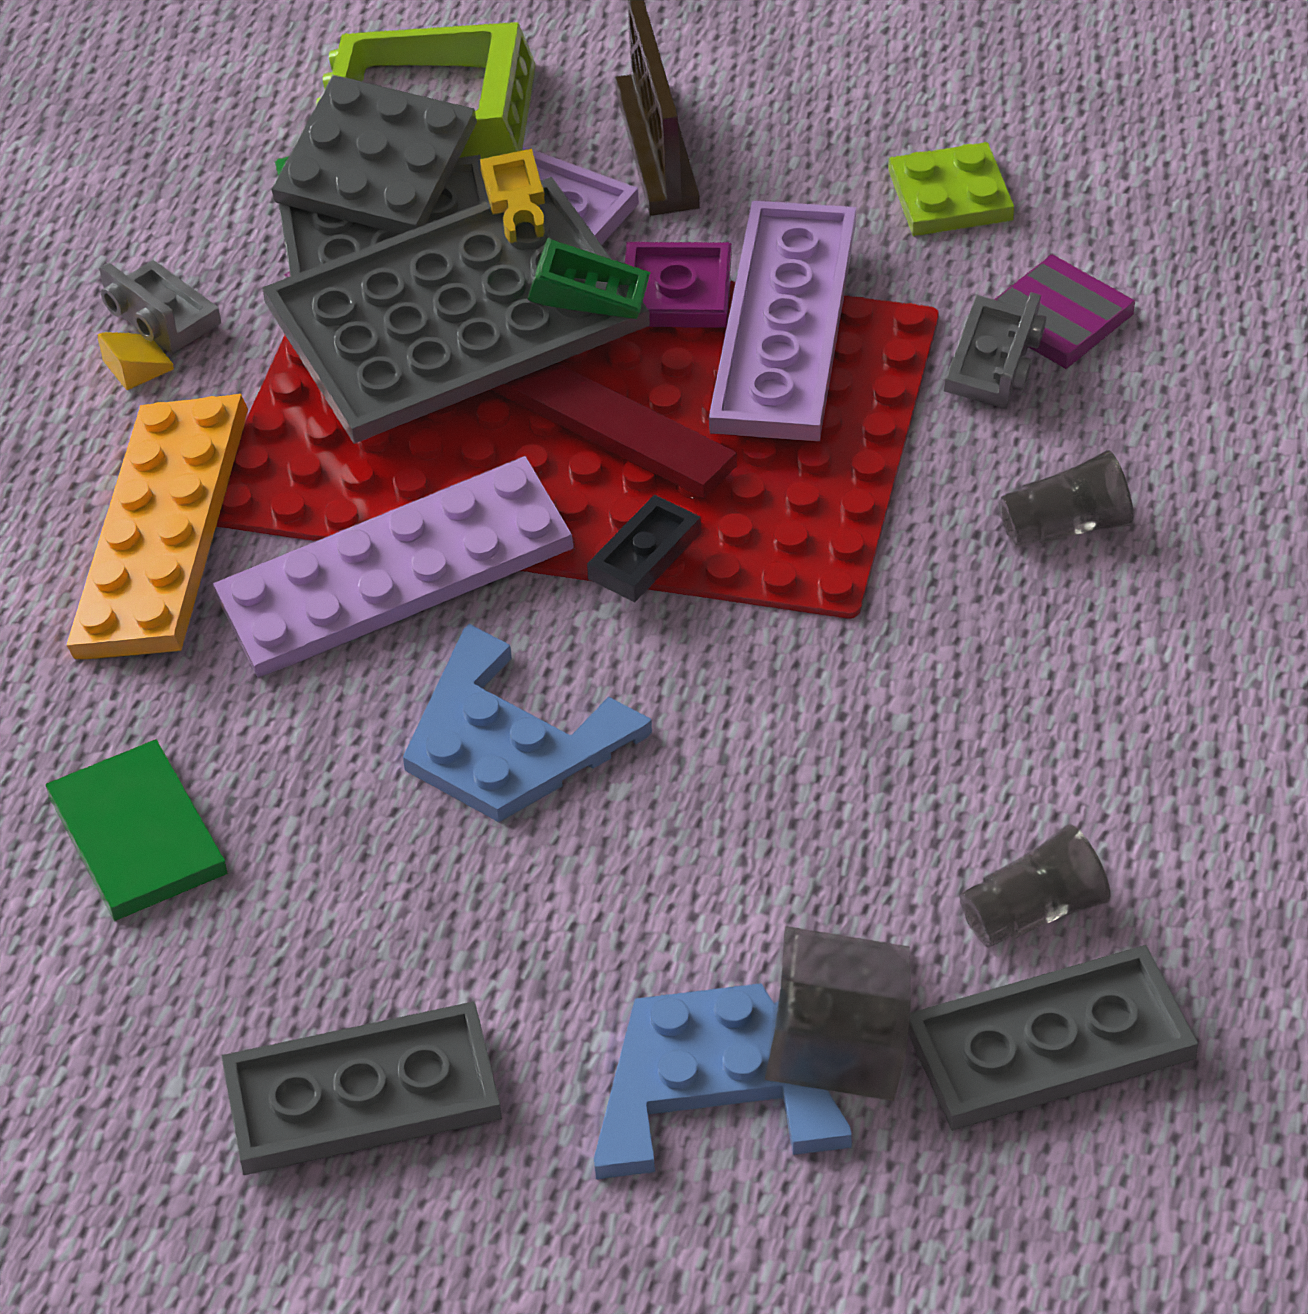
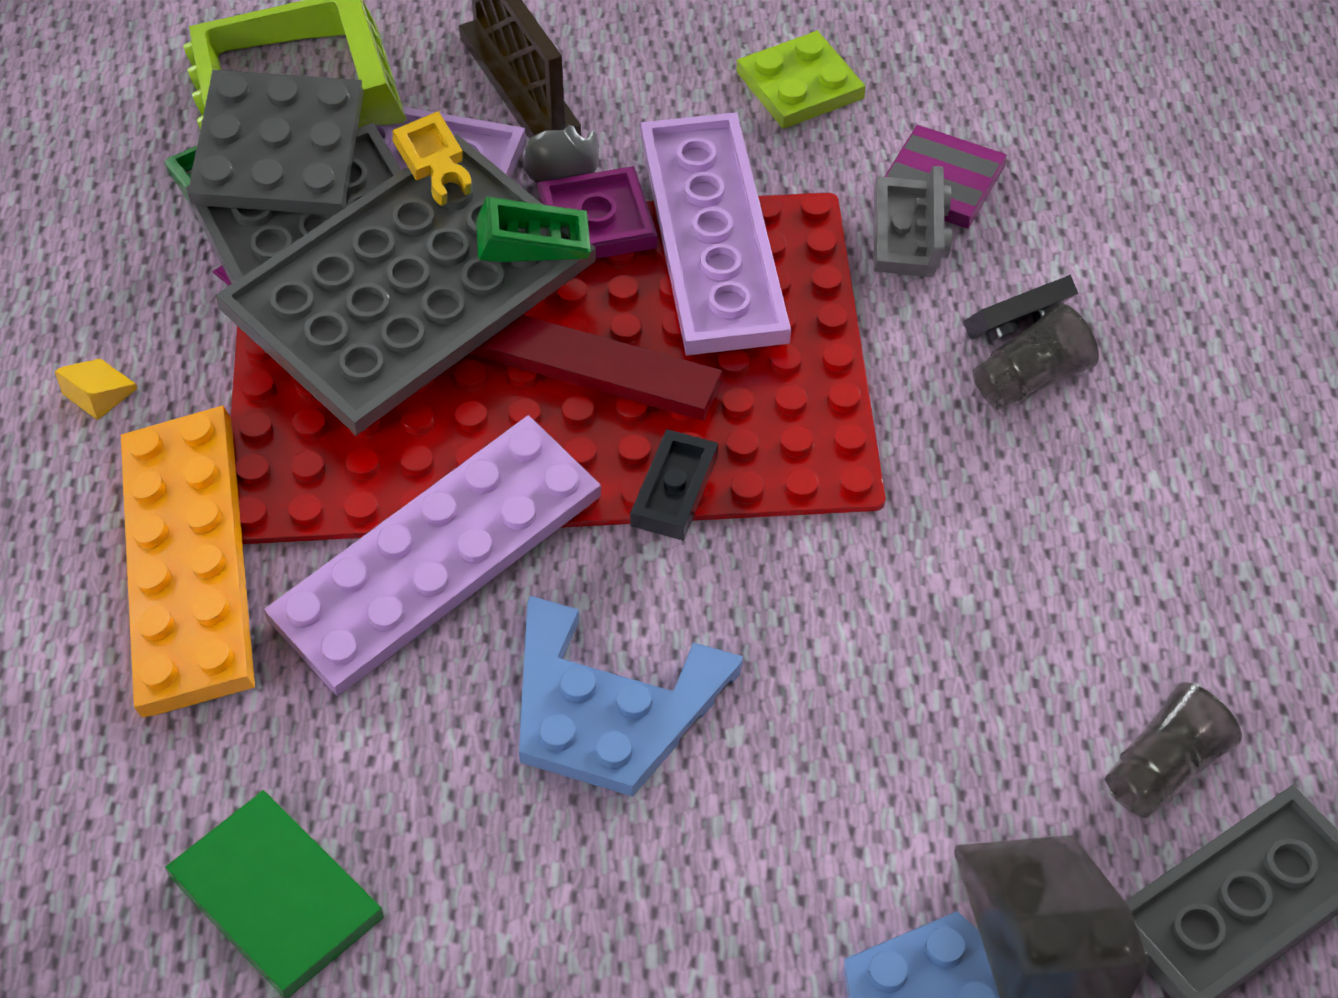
camera: 20 degrees left, 5 degrees up
(158, 304) = (103, 327): flat silver bracket -> none
(661, 218) = (560, 154): none -> dark grey hair
(1060, 453) = (1003, 317): none -> black plate

